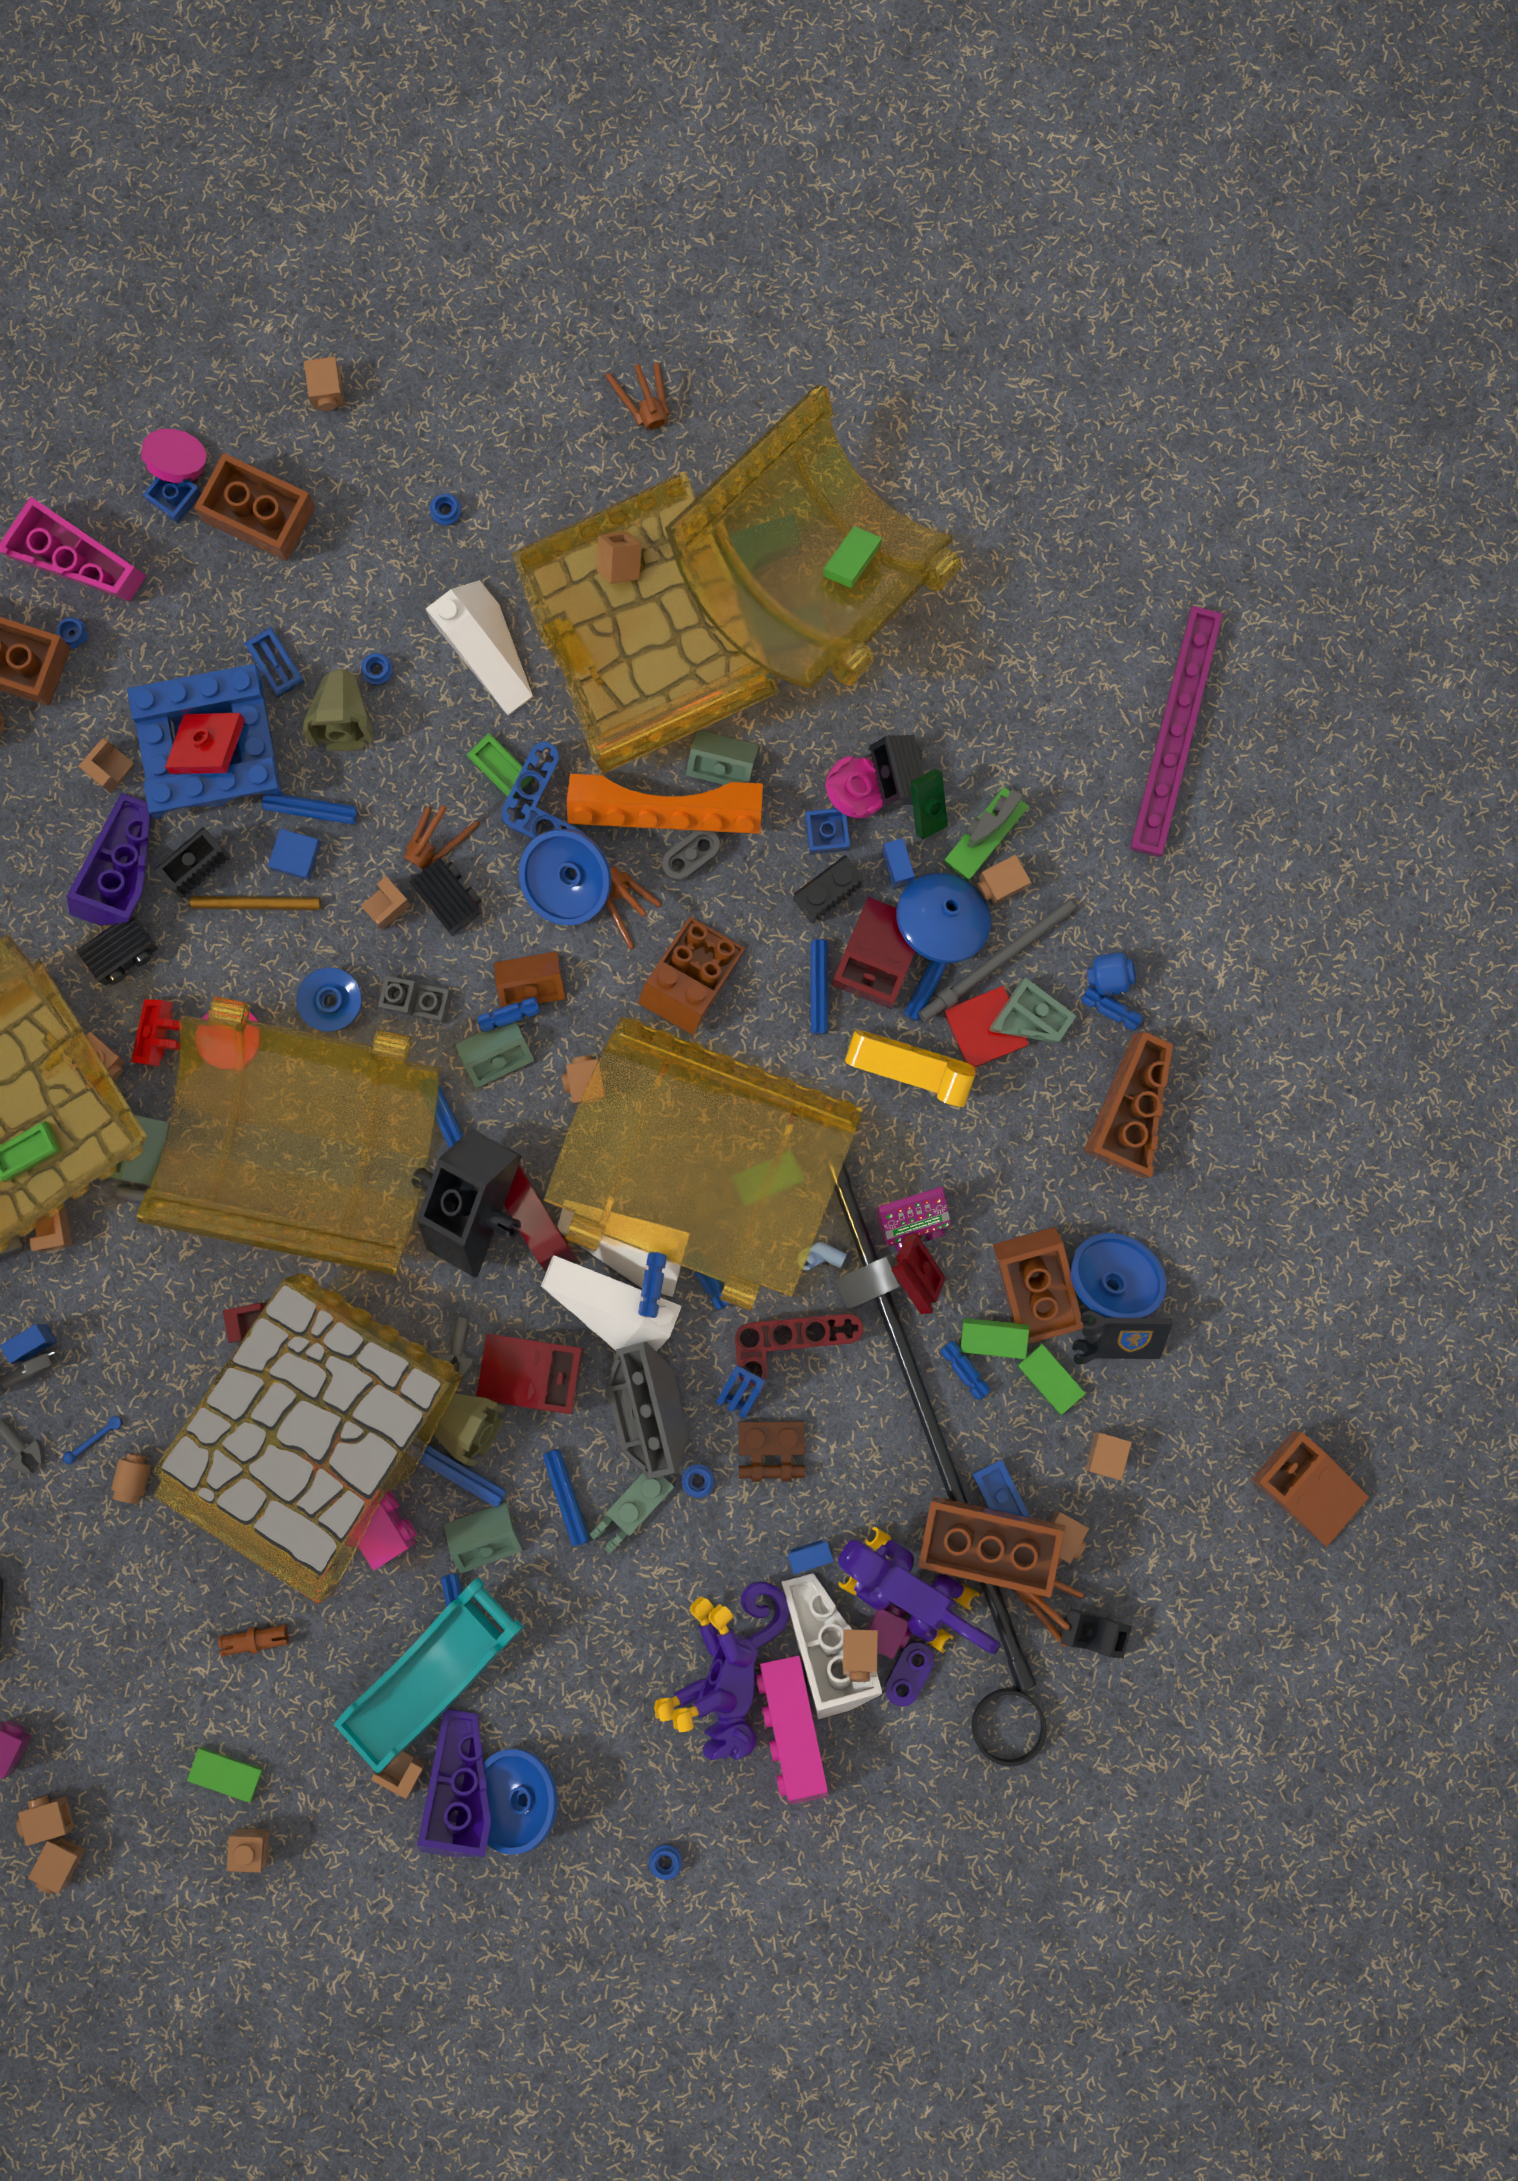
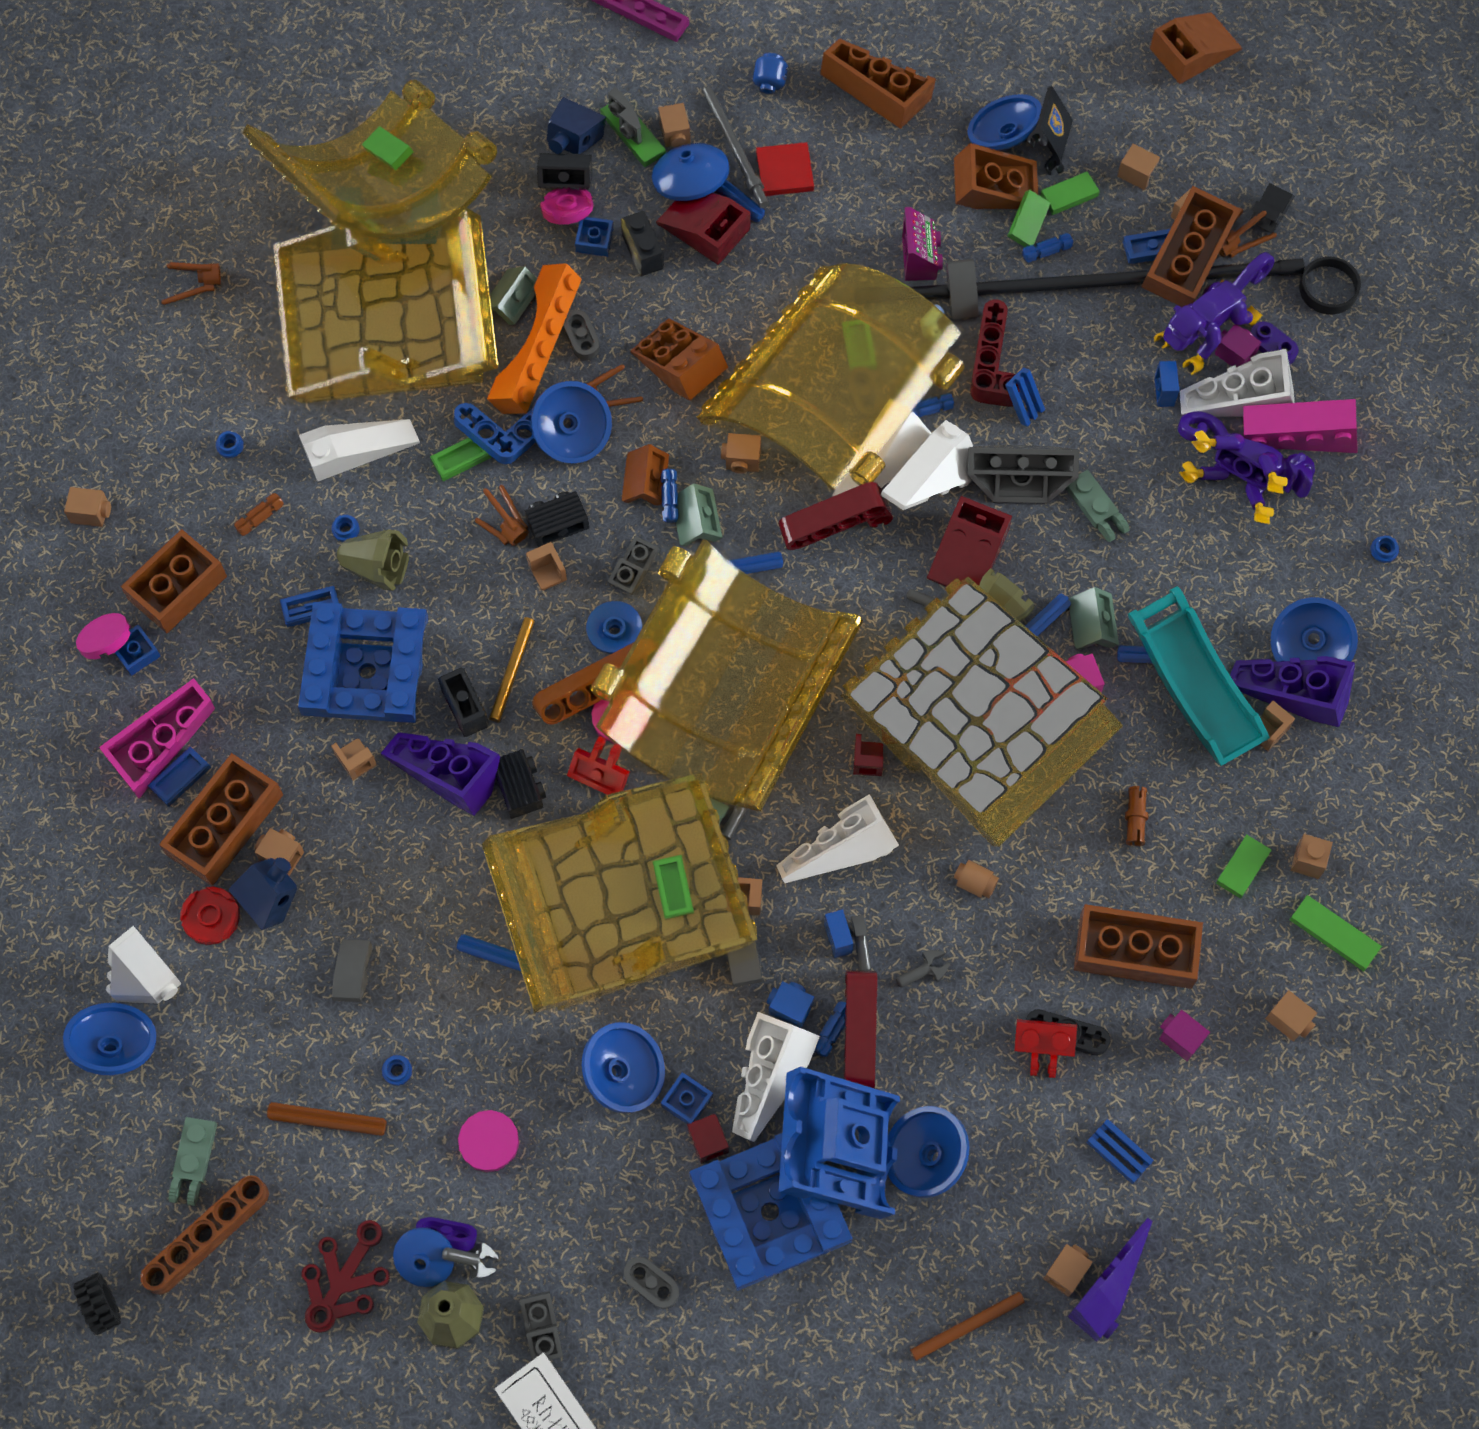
camera: 70 degrees left, 15 degrees down
(42, 591) = (179, 776): none -> blue tile
(44, 1819) = (1251, 1017): medium nougat brick -> none
(70, 624) = (222, 753): blue plate -> none
(90, 1677) = (1138, 946): none -> dark orange brick
(113, 1423) = (924, 887): blue hinge -> none
(140, 1328) = (855, 839): none -> white wedge
(171, 1894) = (1335, 933): none -> bright green tile
(205, 743) = (368, 655): red plate -> none
(239, 980) = (581, 681): none -> dark orange beam
(294, 854) = (481, 627): blue piece -> none
(310, 808) = (445, 607): blue axle -> none
(369, 569) = (258, 514): none -> dark orange axle
(467, 1200) = (838, 573): black slope -> none
(566, 1497) = (1076, 551): blue axle -> none
(618, 557) = (323, 316): medium nougat panel -> none
(652, 1285) = (925, 427): blue axle -> none
(702, 1491) = (1090, 446): blue plate -> none
(771, 1438) = (1066, 395): reddish brown plate -> none
(819, 986) = (716, 272): blue axle -> none
(860, 1654) = (1253, 355): medium nougat brick -> none
(898, 863) = (638, 191): blue piece -> none
(912, 1065) = (802, 217): yellow beam -> none
(918, 1273) = (955, 250): dark red plate -> none
(929, 803) = (599, 154): dark green plate -> none
(963, 760) = (574, 128): none -> dark blue torso
(1033, 1015) = (785, 131): sand green wing -> none
(1112, 1008) = (796, 83): blue axle -> none

